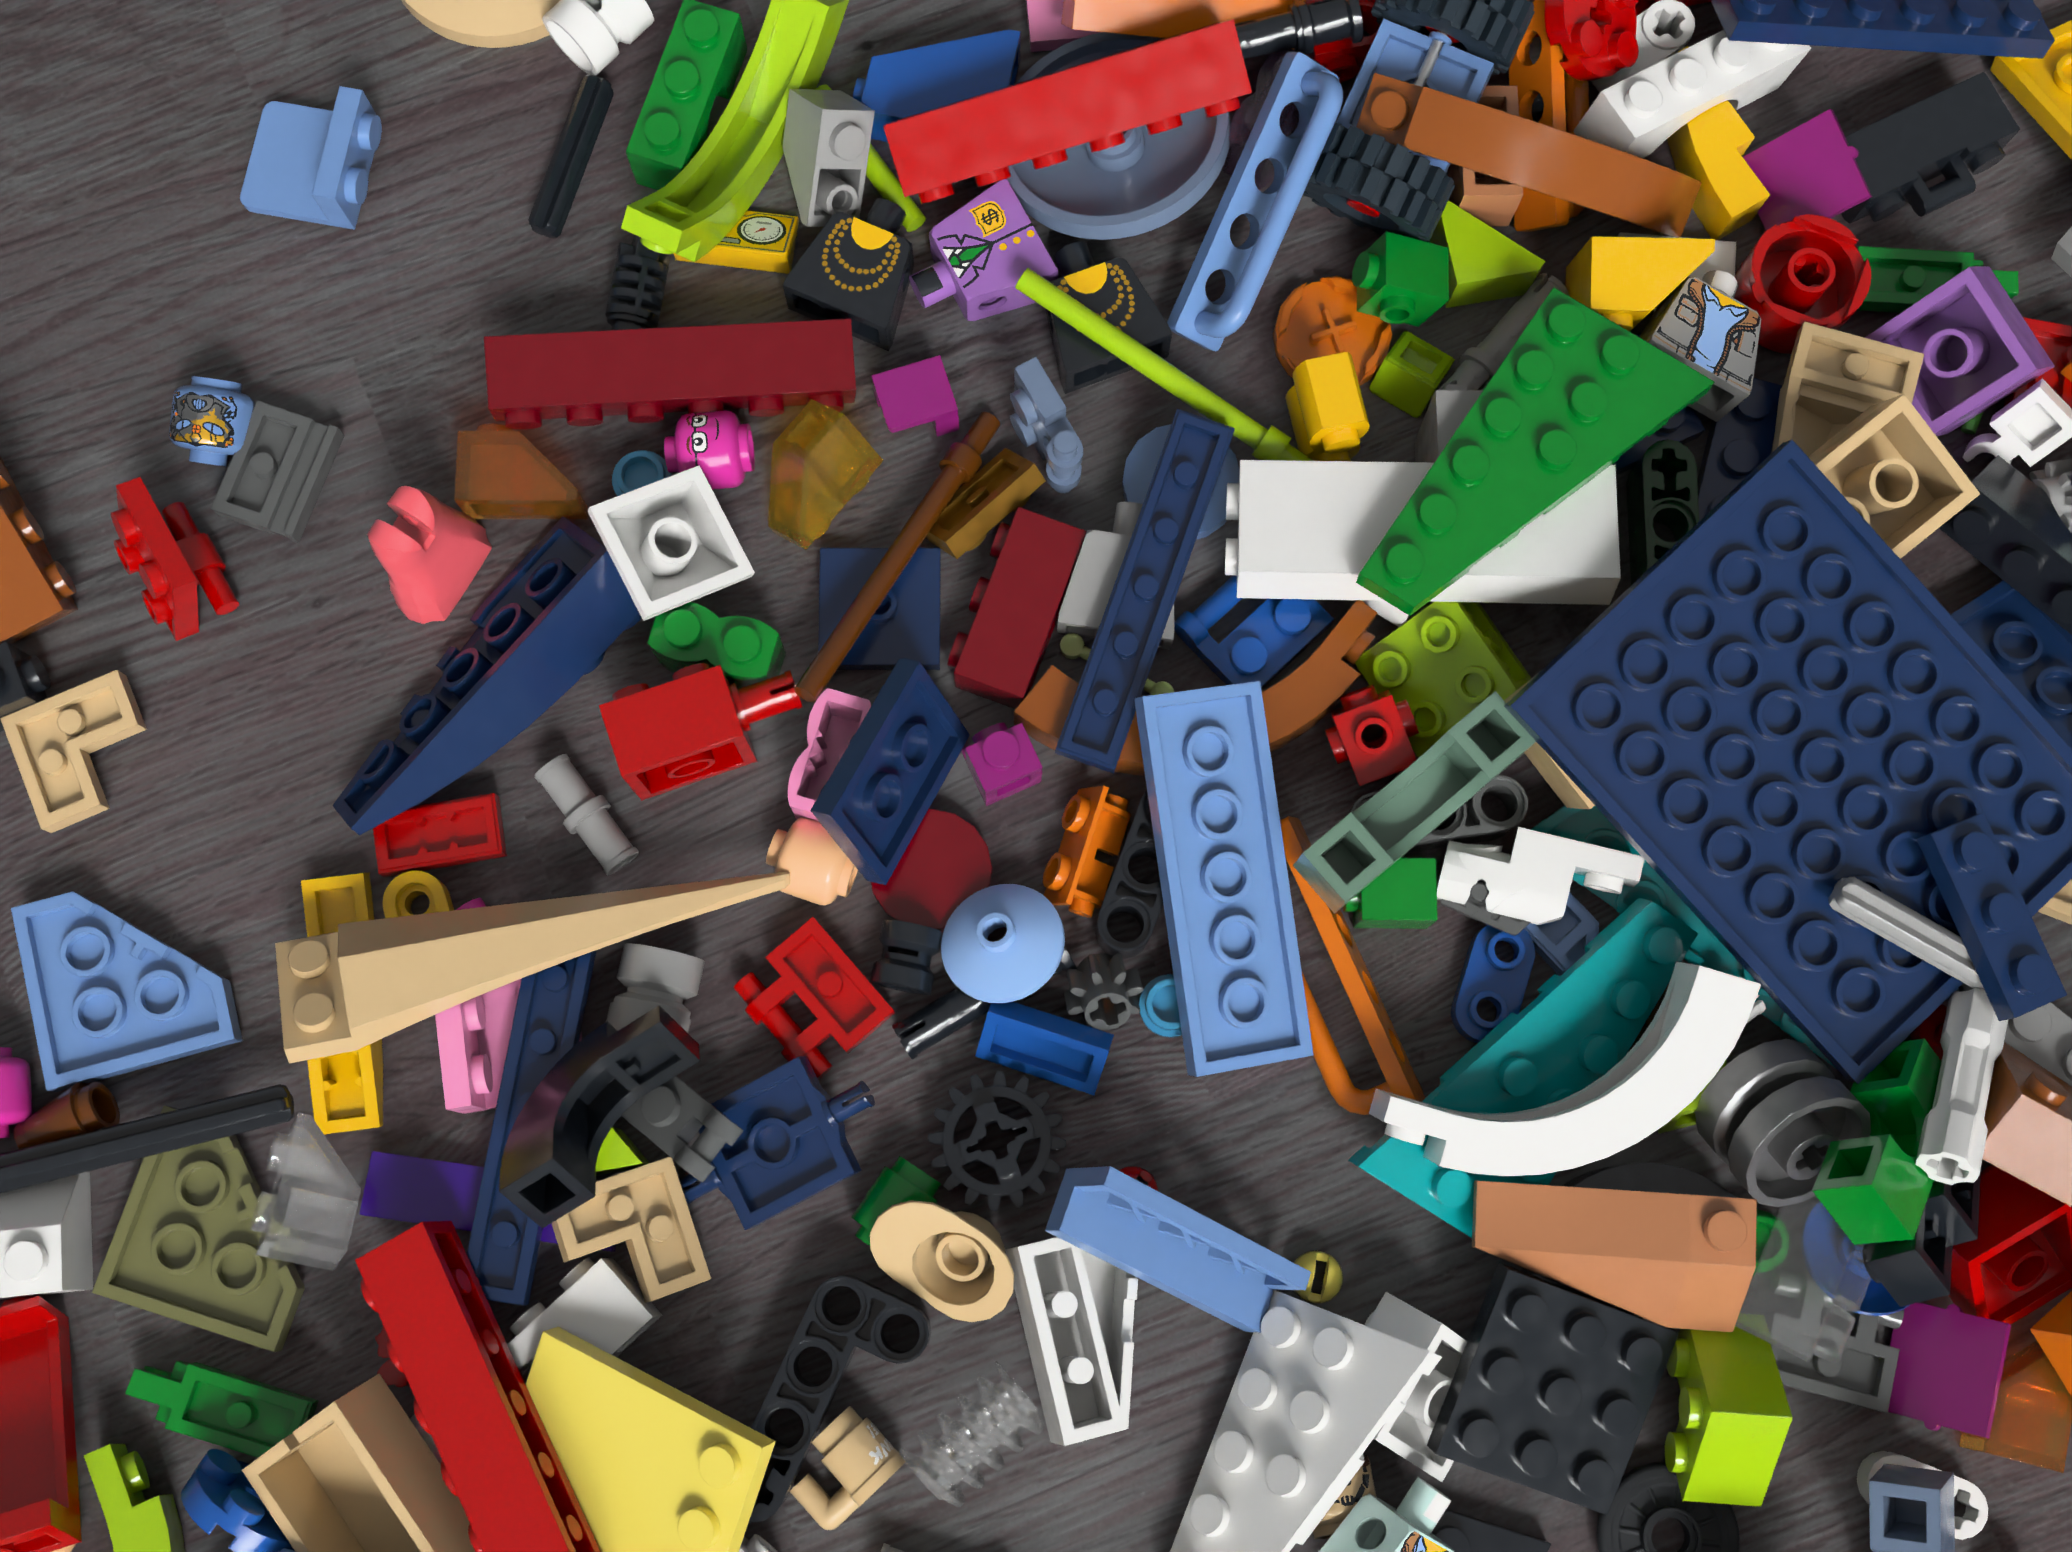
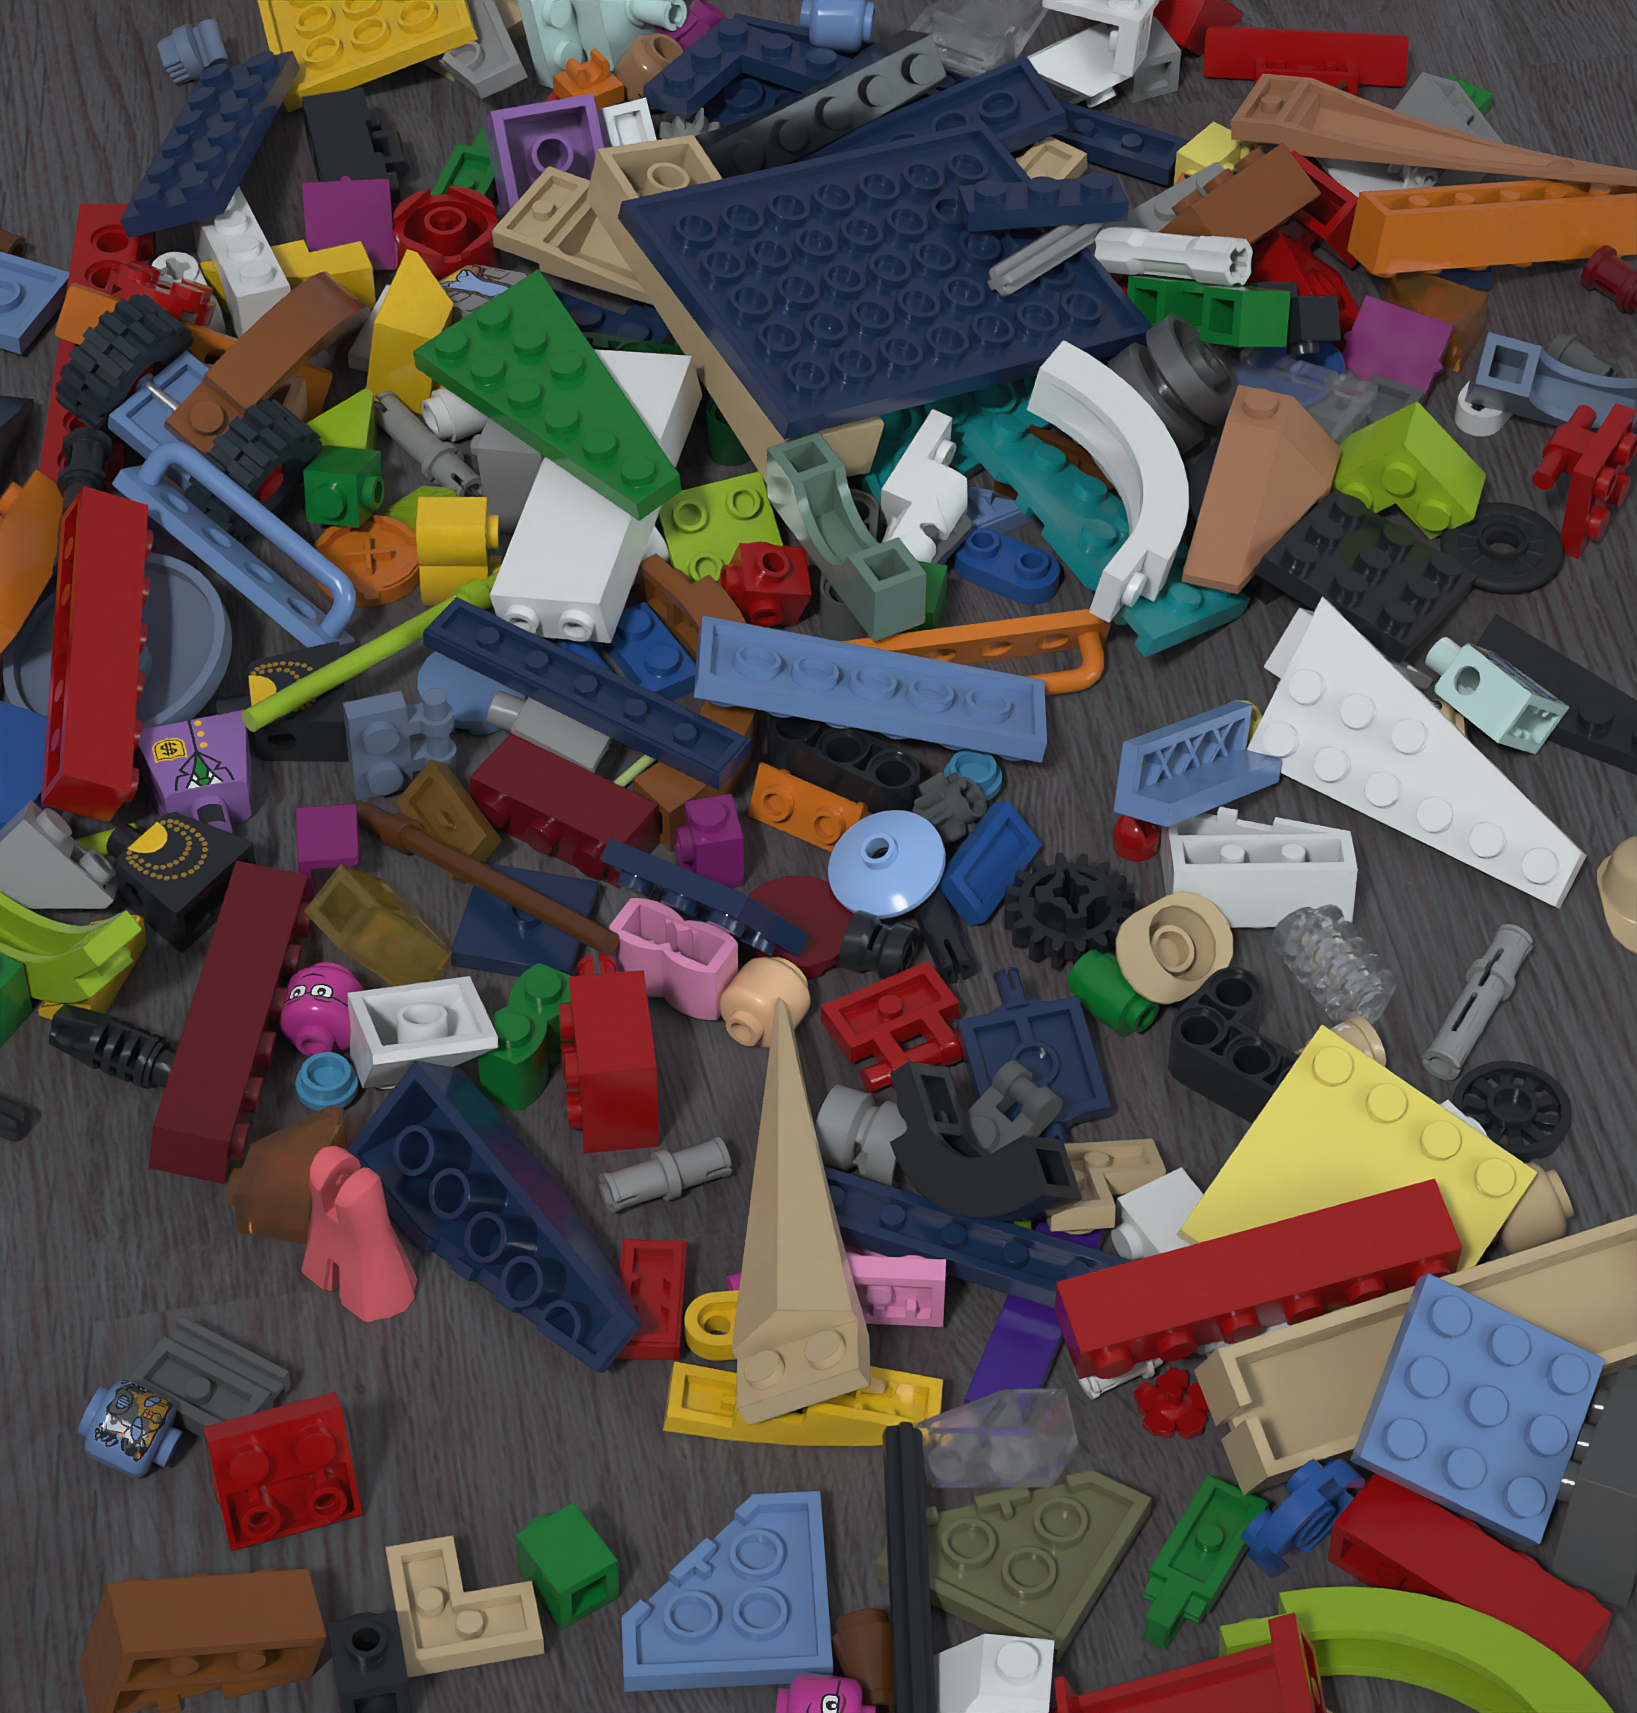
camera: 75 degrees left, 30 degrees down
(126, 829) = (567, 1565): none -> green brick

